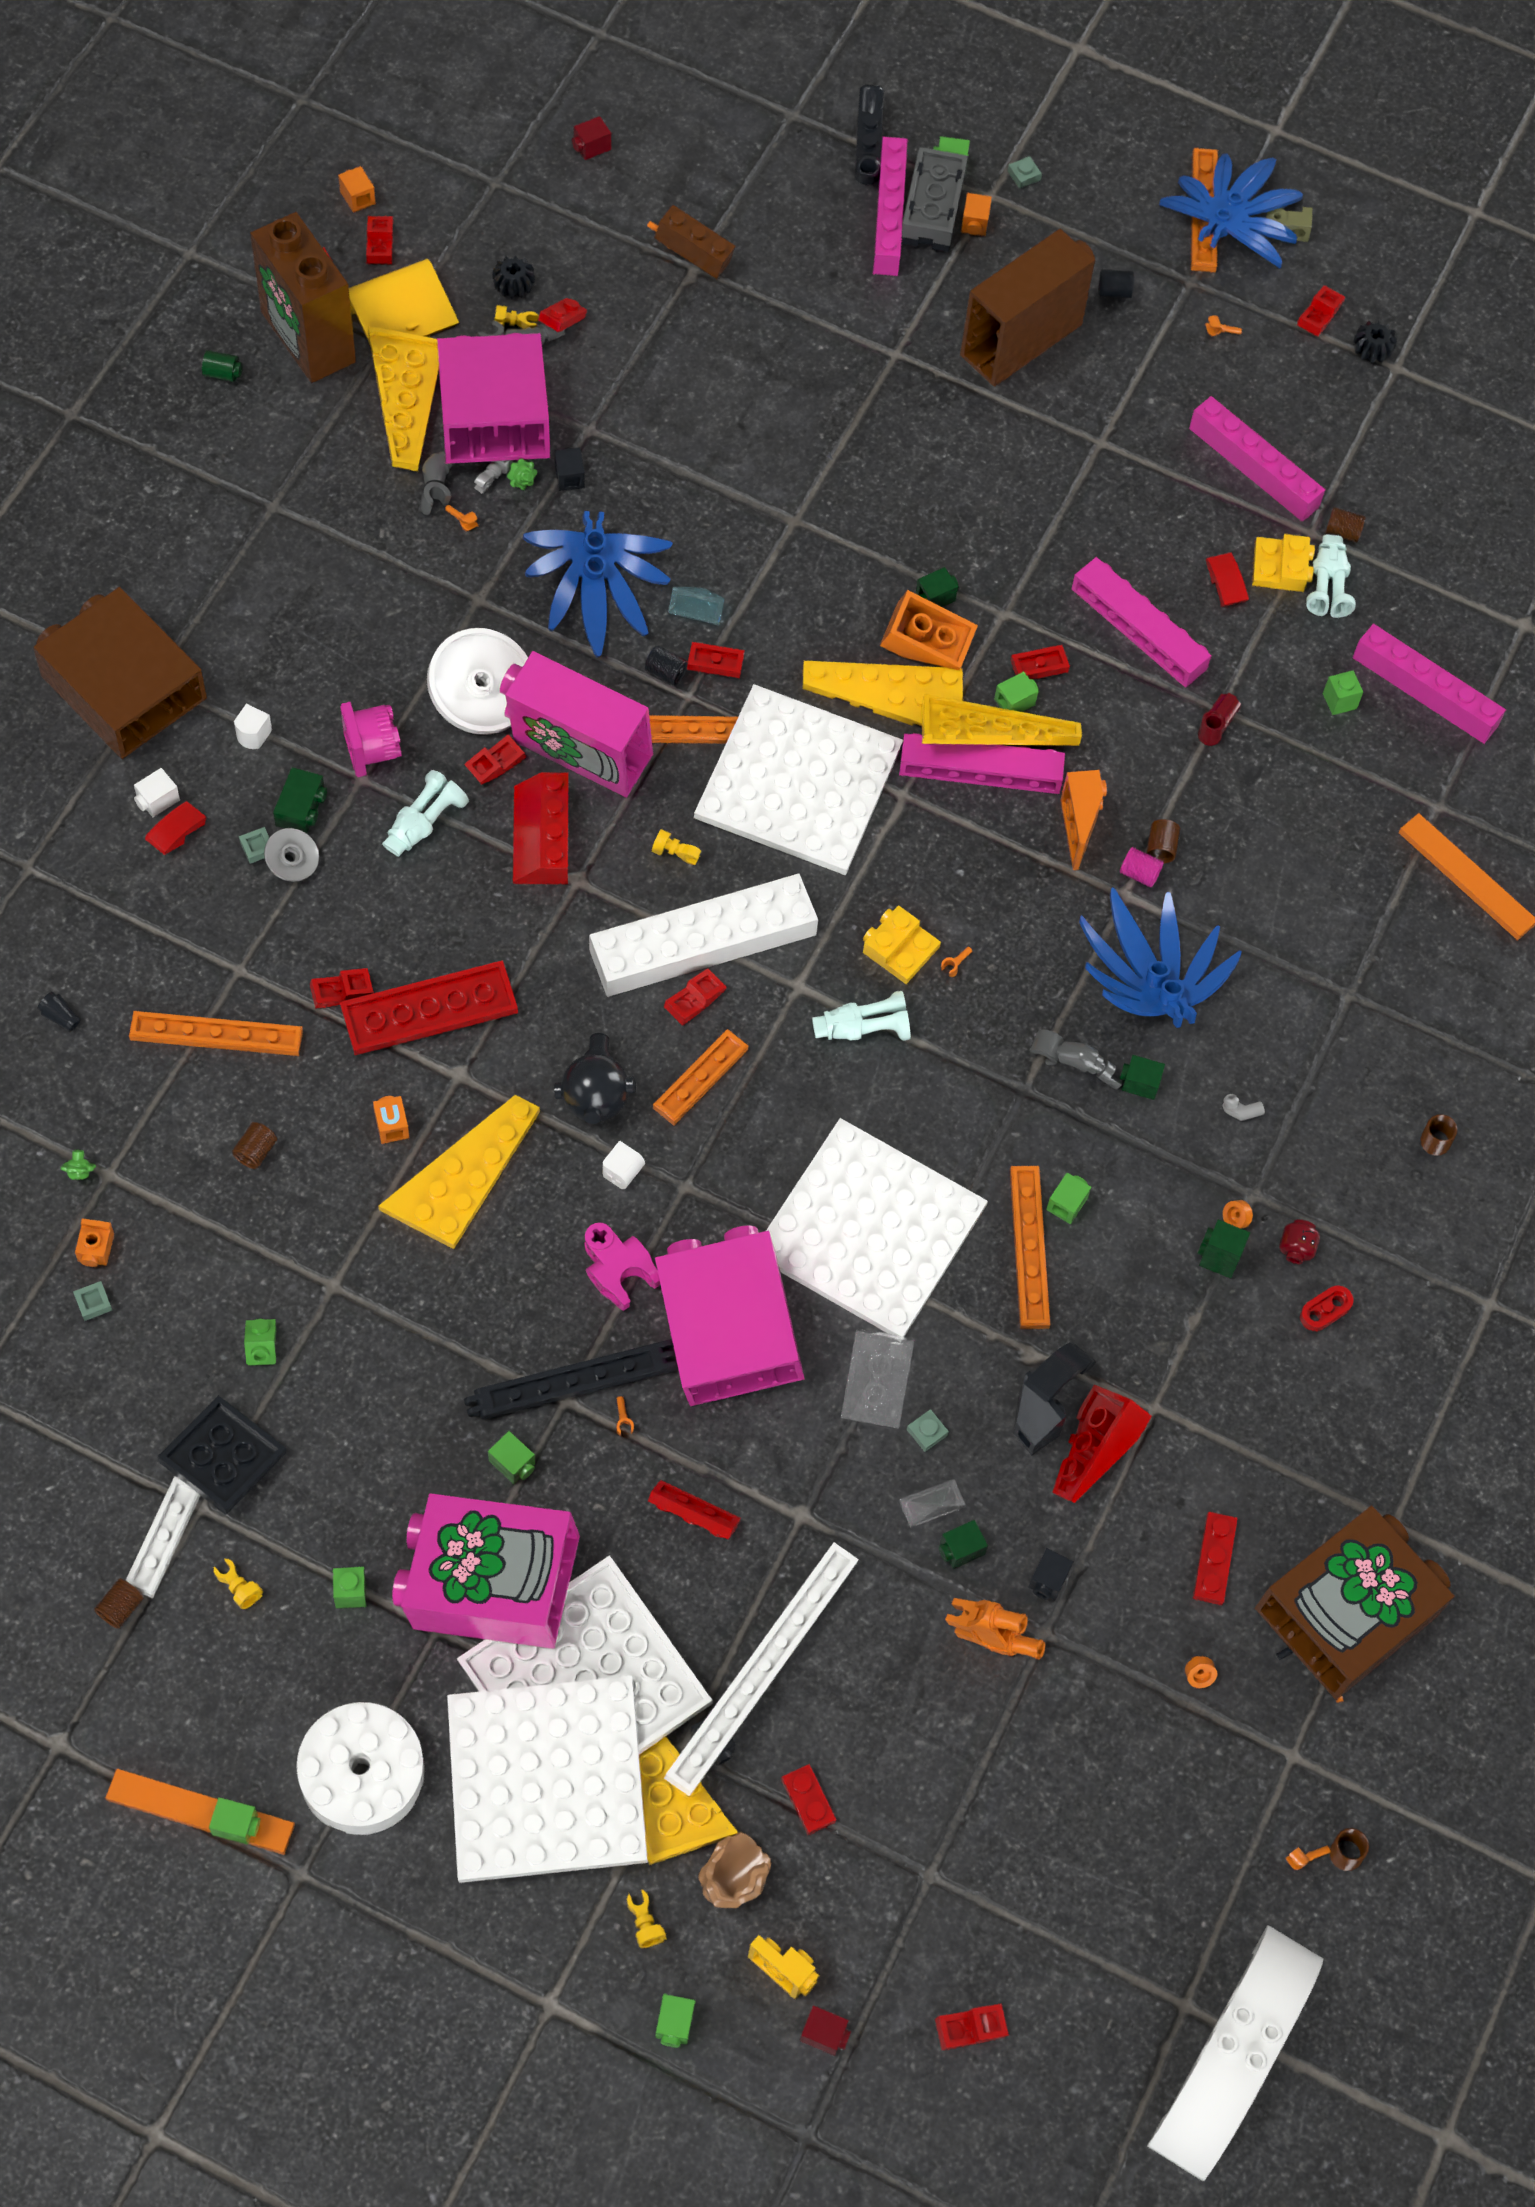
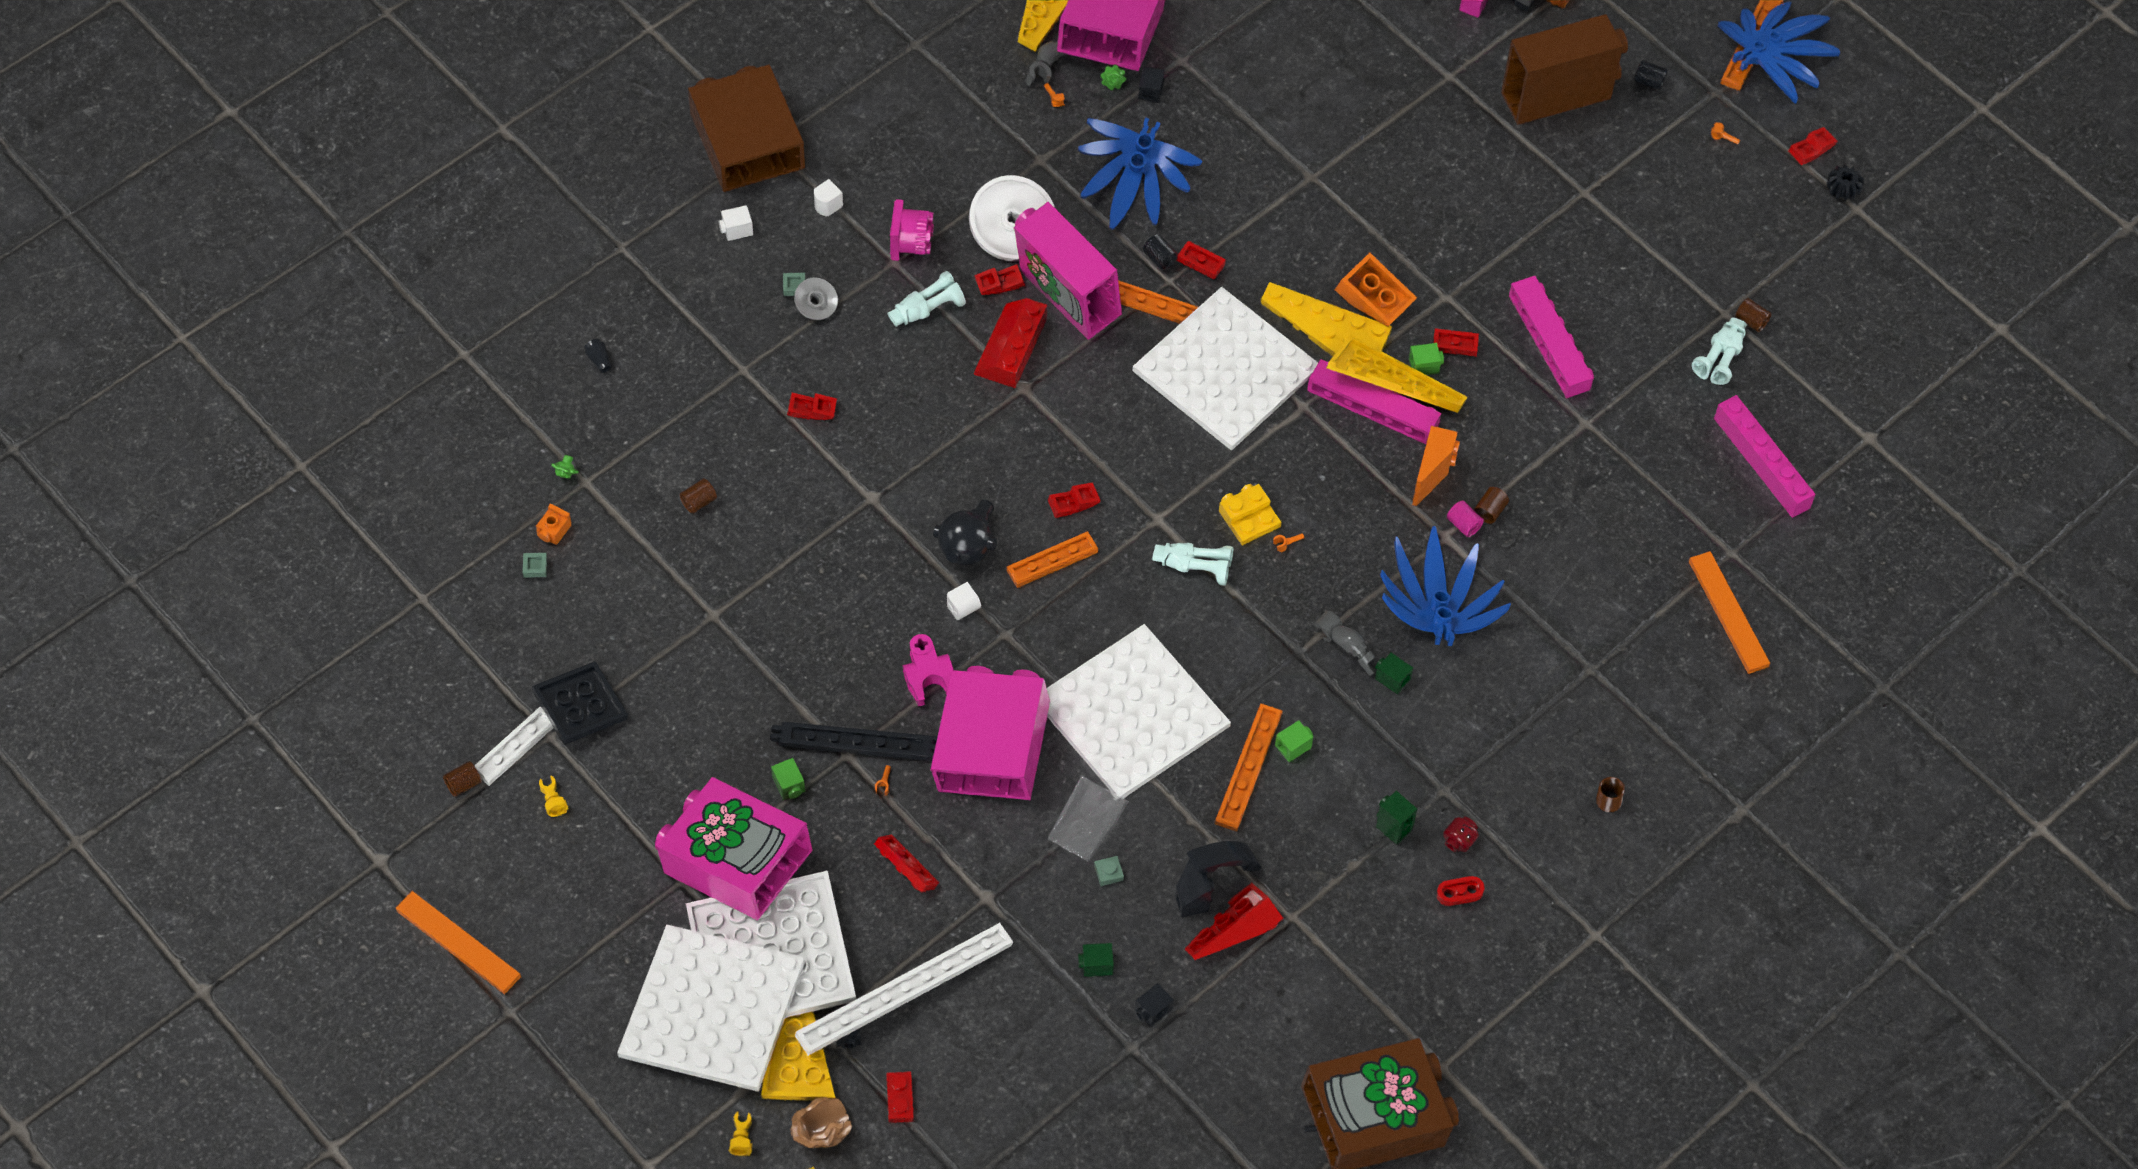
camera: 25 degrees right, 5 degrees down
(174, 827) = (738, 252): red slope -> none
(216, 1033) = (706, 408): orange tile -> none
(234, 1821) = (477, 954): bright green brick -> none
(260, 1342) = (641, 635): bright green bracket -> none
(300, 800) = (839, 262): dark green brick -> none
(349, 1587) = (630, 826): bright green brick -> none
(364, 1736) = (569, 934): white brick -> none
(391, 1119) = (806, 511): orange brick -> none
(428, 1007) = (869, 441): red plate -> none
(454, 1185) = (834, 574): yellow wing -> none
(492, 471) = (1085, 72): light grey piece -> none
(686, 852) = (1100, 379): yellow piece -> none
(696, 604) = (1205, 214): clear light blue slope -> none
(703, 935) = (1099, 456): white brick -> none
(932, 1503) = (1088, 923): clear slope -> none
(938, 587) = (1399, 260): dark green brick -> none
(994, 1628) = (1090, 1025): orange connector -> none
(1200, 1672) = (1237, 1115): orange tile -> none
(1215, 1558) = (1287, 1040): red plate -> none
(1218, 719) = (1577, 429): dark red piece -> none
(1228, 579) = (1637, 326): red slope -> none
(1238, 1213) = (1422, 798): orange tile -> none
(1239, 1111) = (1458, 722): light grey arm -> none
(1256, 458) = (1703, 242): dark pink brick -> none
(1283, 562) = (1689, 328): yellow plate -> none
(1297, 222) = (1824, 72): olive leg -> none
(1342, 692) = (1690, 440): bright green brick -> none

